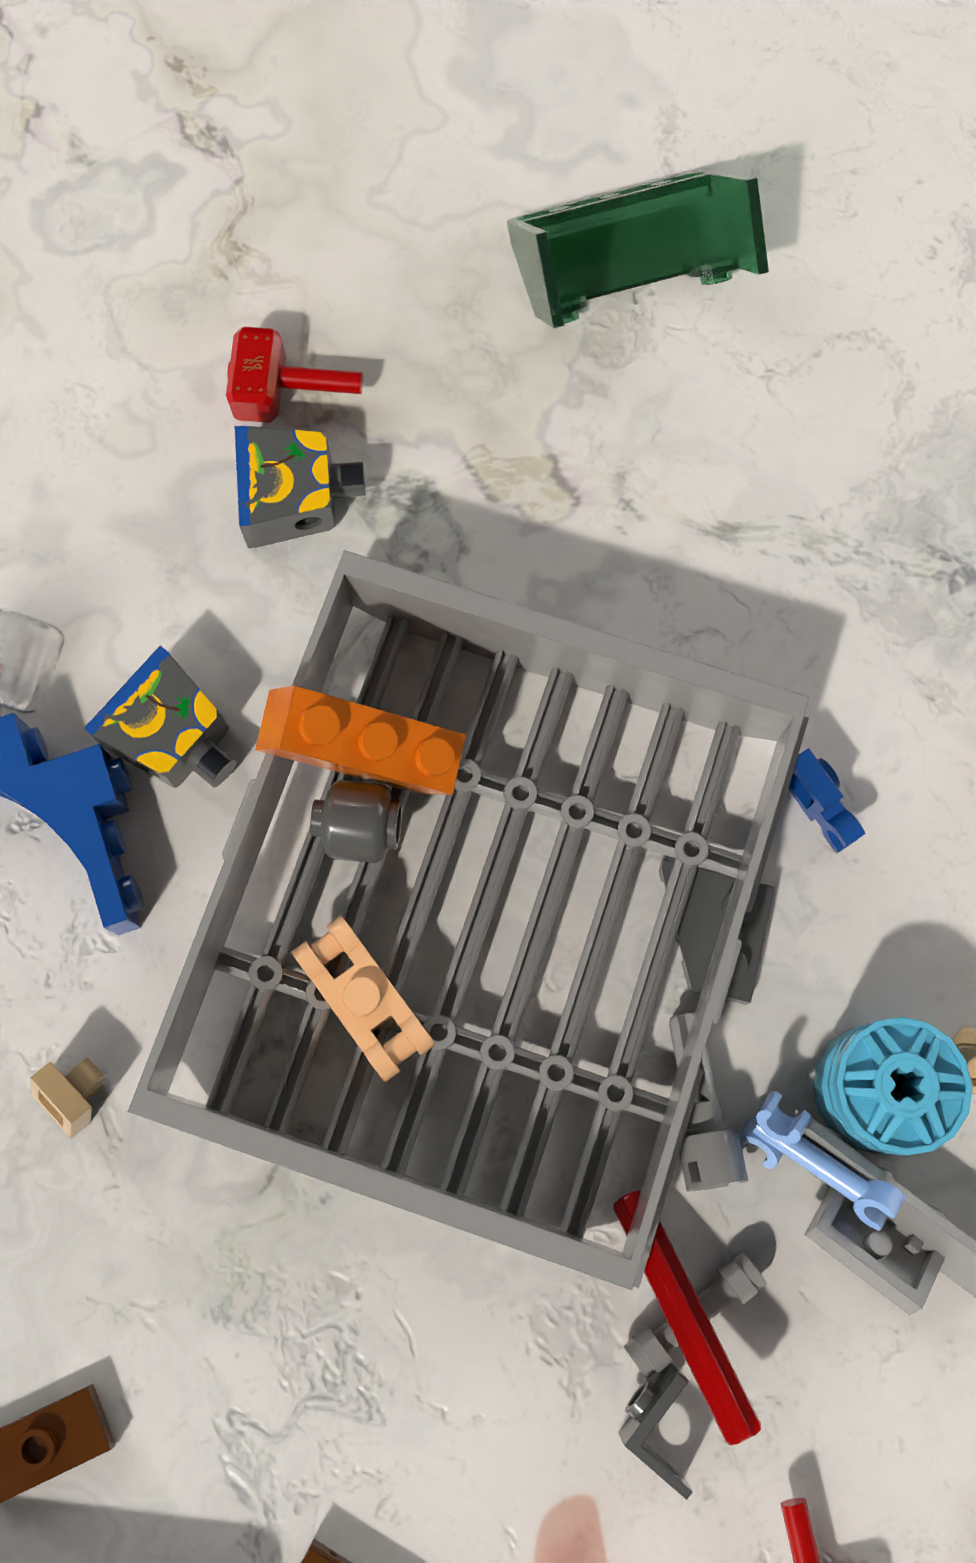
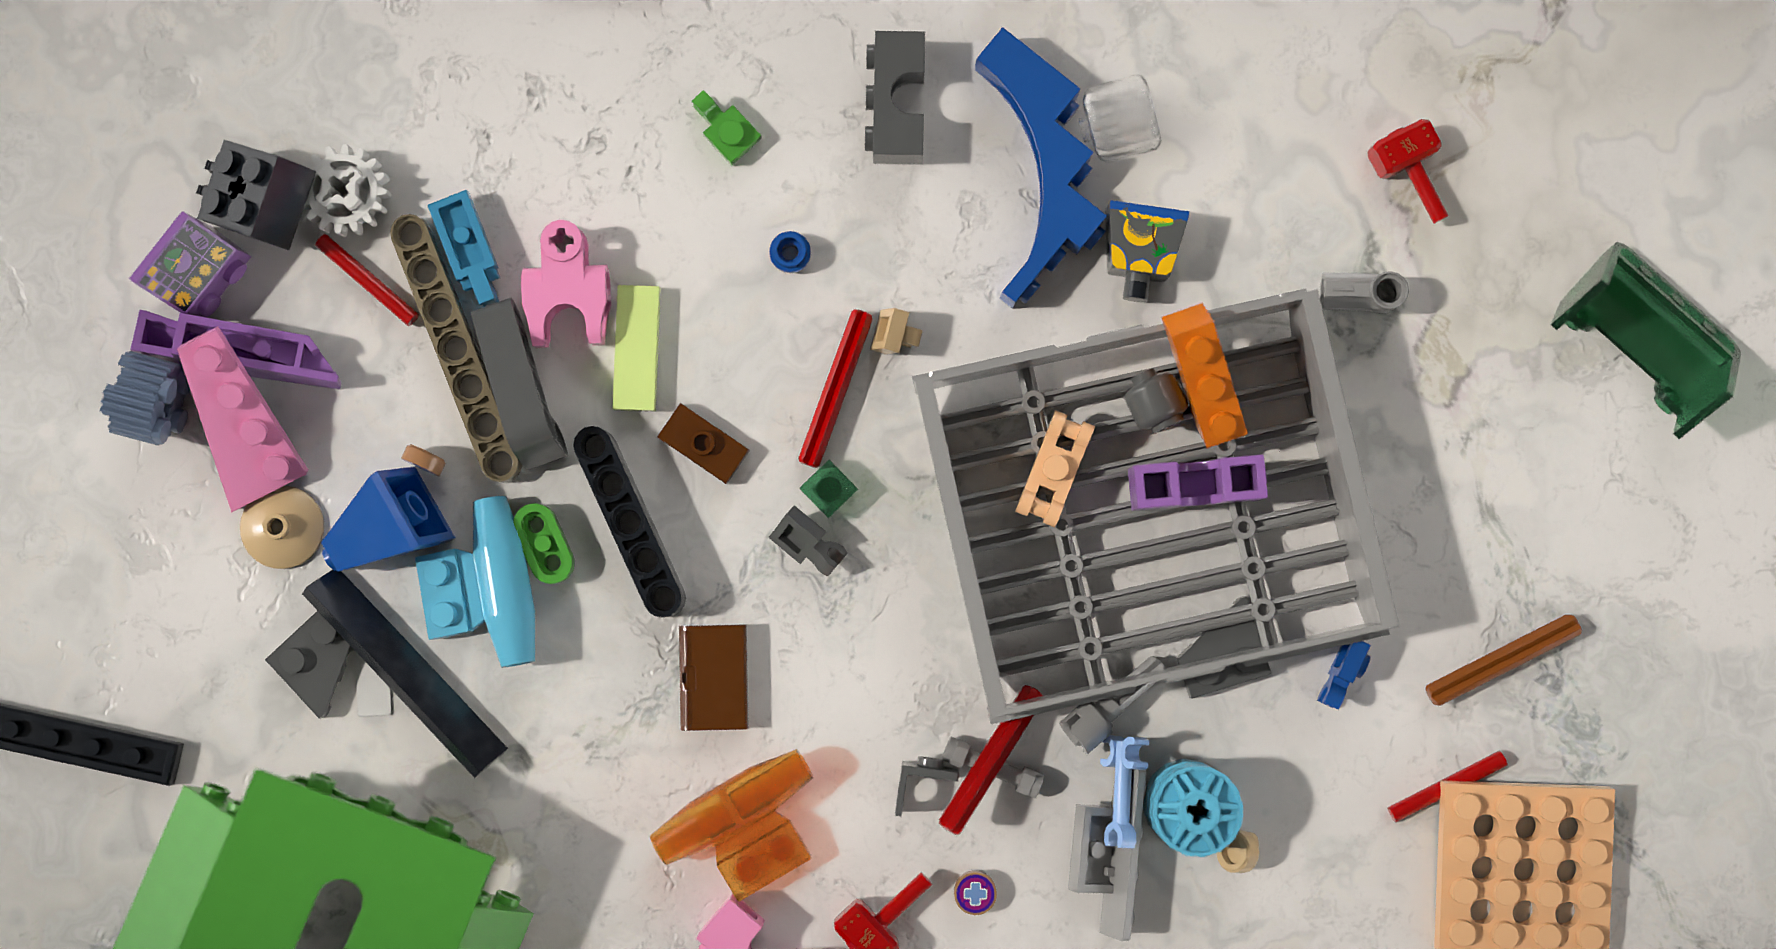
camera: 60 degrees right, 10 degrees up
(88, 1218) = (835, 388): none -> red axle
(207, 1310) = (829, 488): none -> clear green plate
(250, 1389) = (803, 539): none -> dark grey plate
(289, 484) = (1344, 219): torso -> none
(384, 516) = (1359, 292): none -> light grey piece
(490, 833) = (1197, 483): none -> medium lavender arch
(846, 1444) = (975, 892): none -> tile
(908, 614) = (1503, 659): none -> dark orange axle

